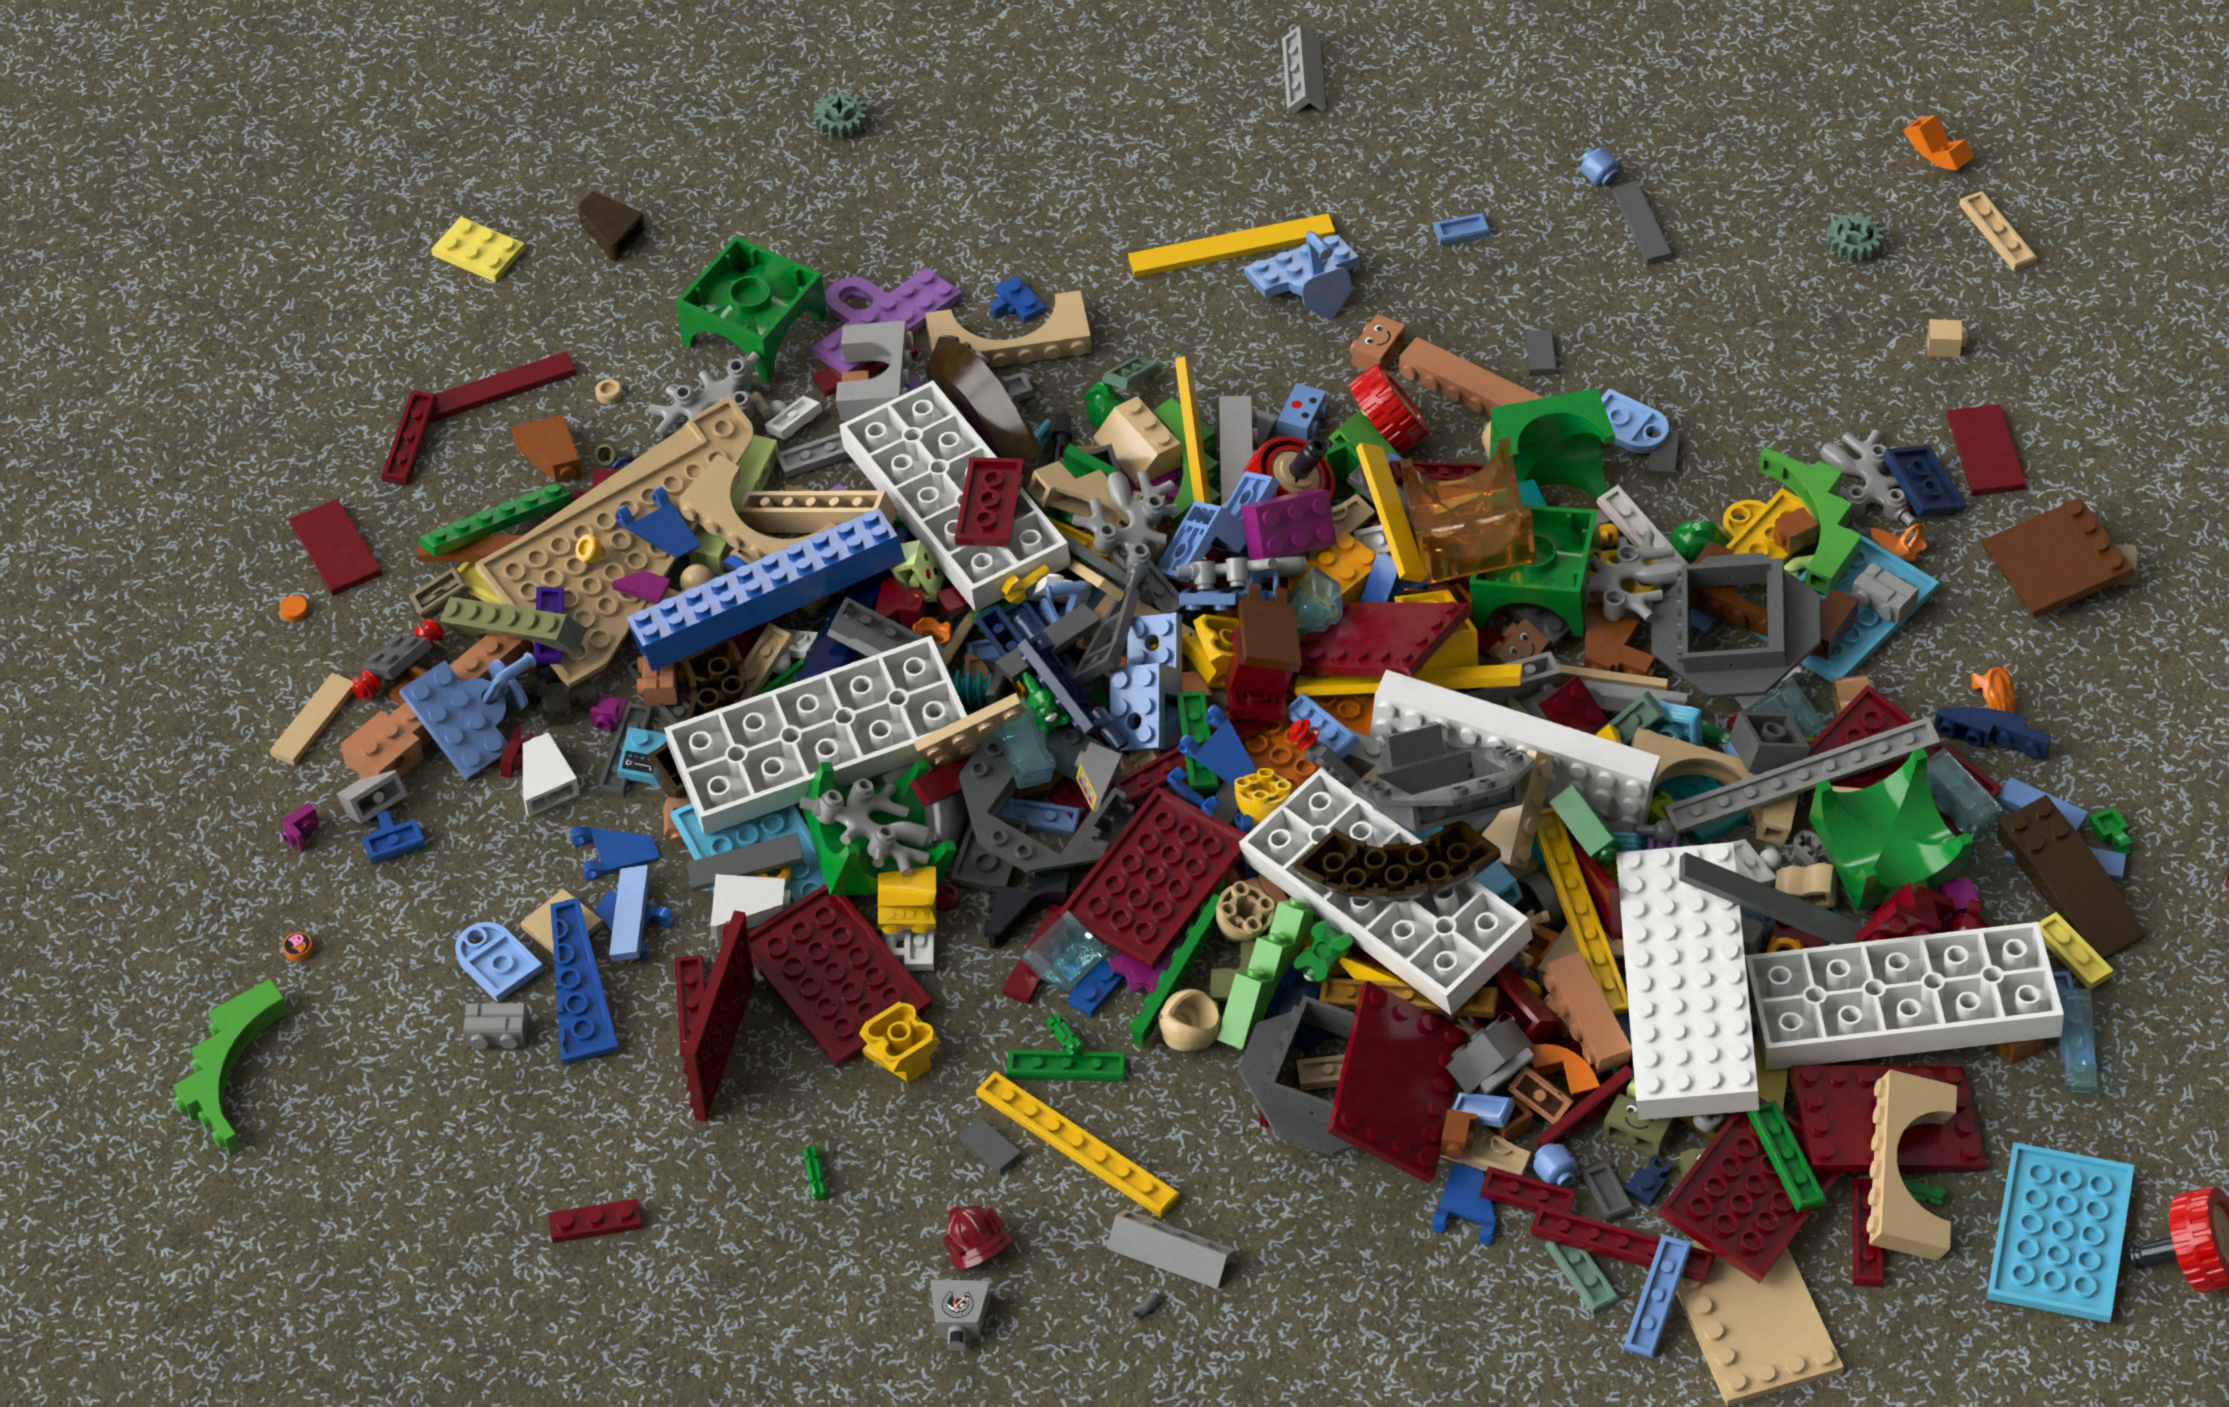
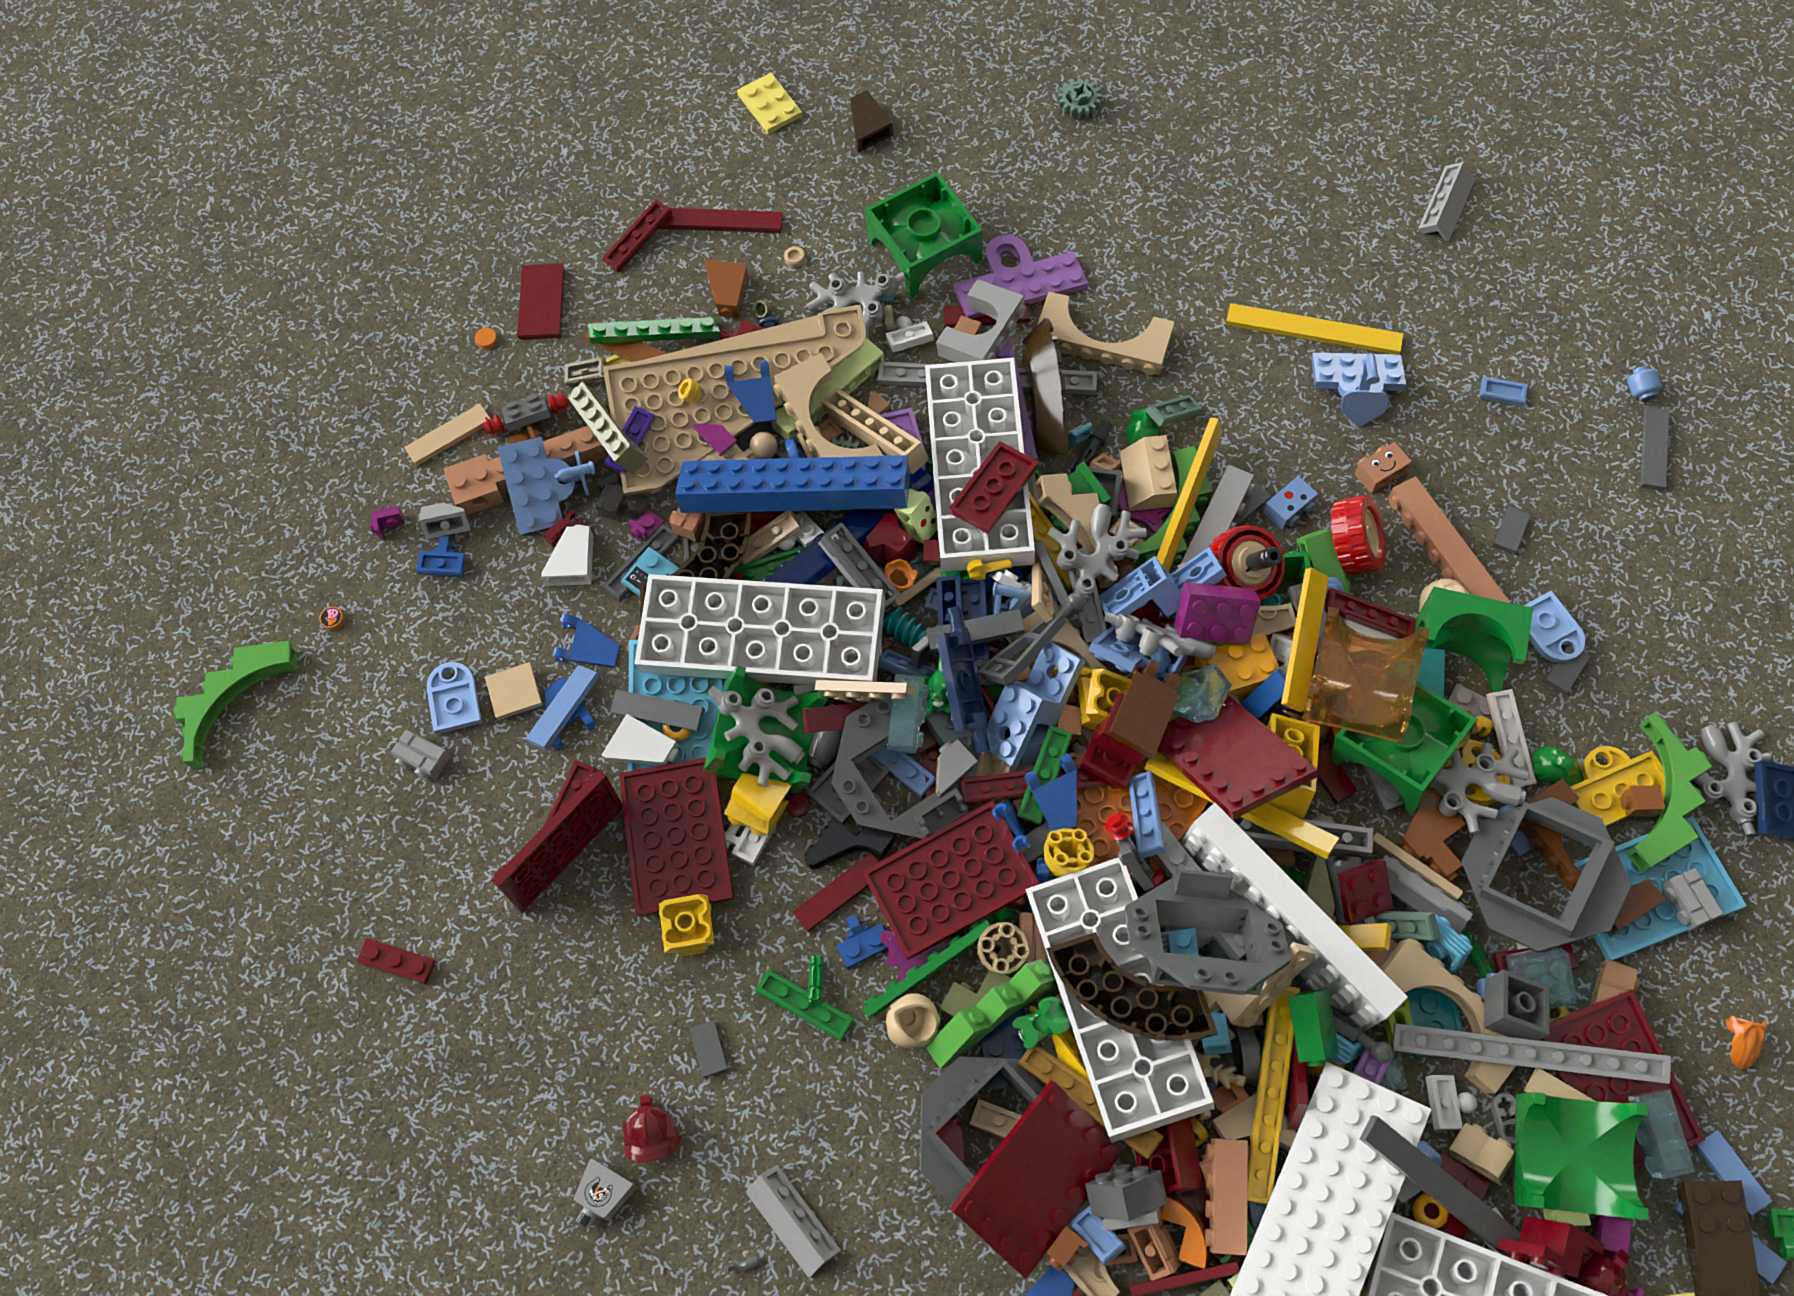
camera: 30 degrees right, 15 degrees up
(581, 1002) = (486, 771): blue wing -> none
(815, 1173) = (570, 1004): green axle -> none
(975, 665) = (926, 614): medium nougat tile -> none
(1016, 299) = (1126, 307): blue hinge -> none
(1064, 953) = (849, 910): clear light blue slope -> none
(1078, 1144) = (775, 1084): yellow tile -> none
(1519, 643) = (1351, 801): nougat brick -> none
(1798, 564) = (1628, 827): yellowish green arm -> none
(1899, 546) = (1726, 851): orange piece -> none
(1987, 725) = (1716, 1067): dark blue slope -> none

